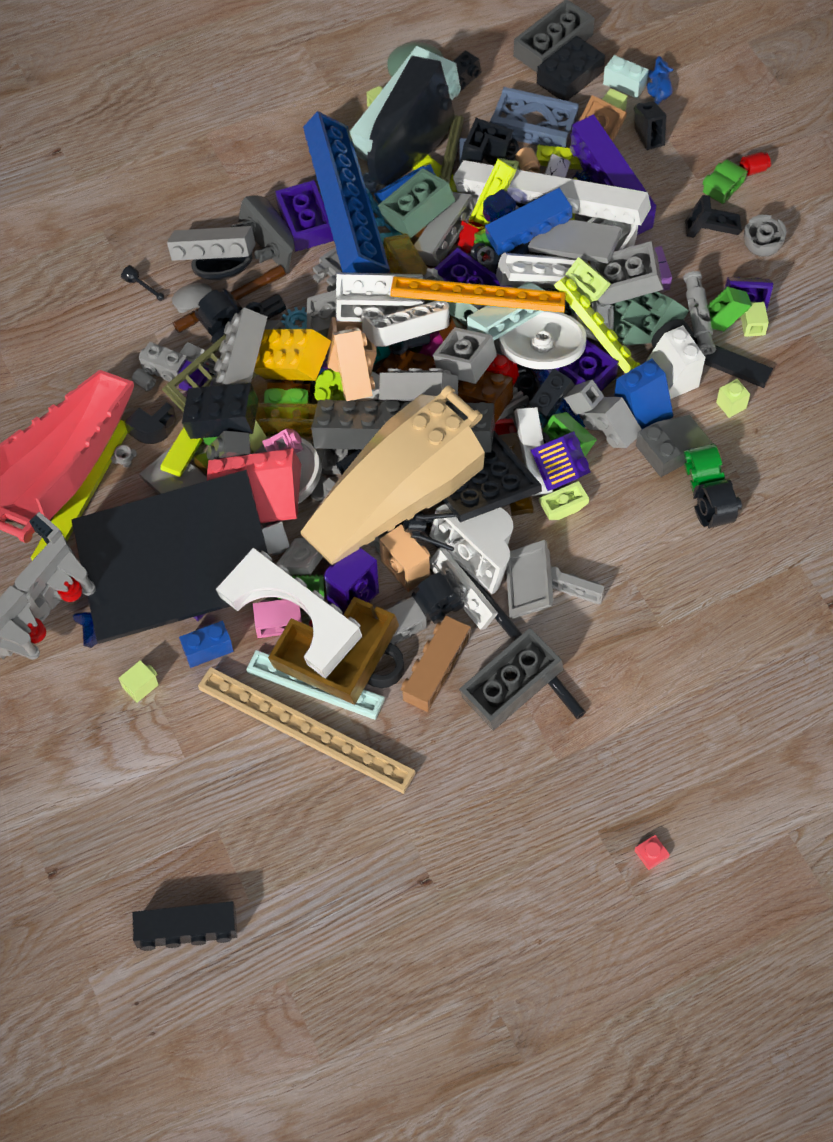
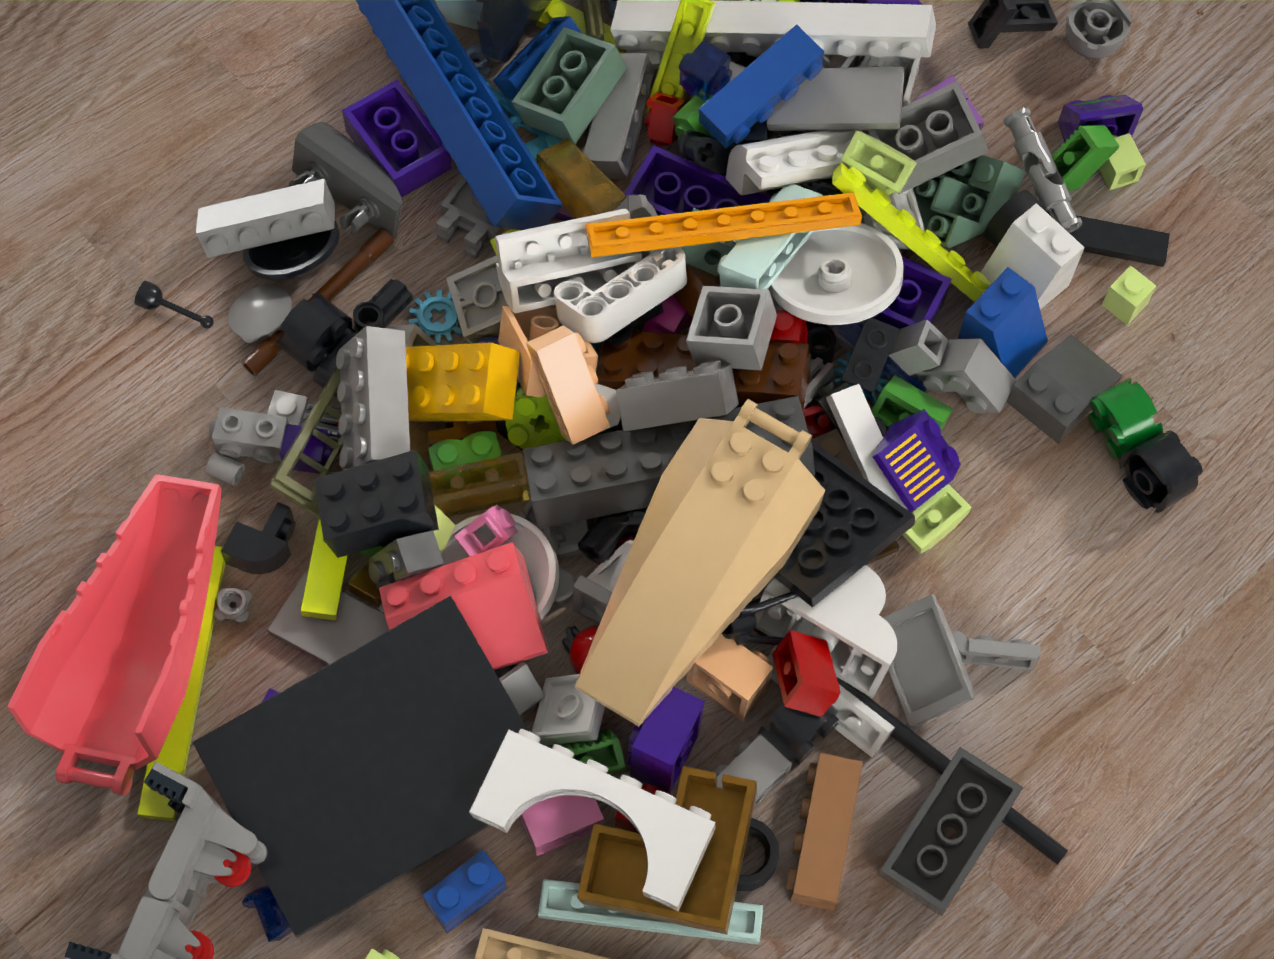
camera: 20 degrees left, 5 degrees up
(447, 563) = (806, 673): none -> red brick

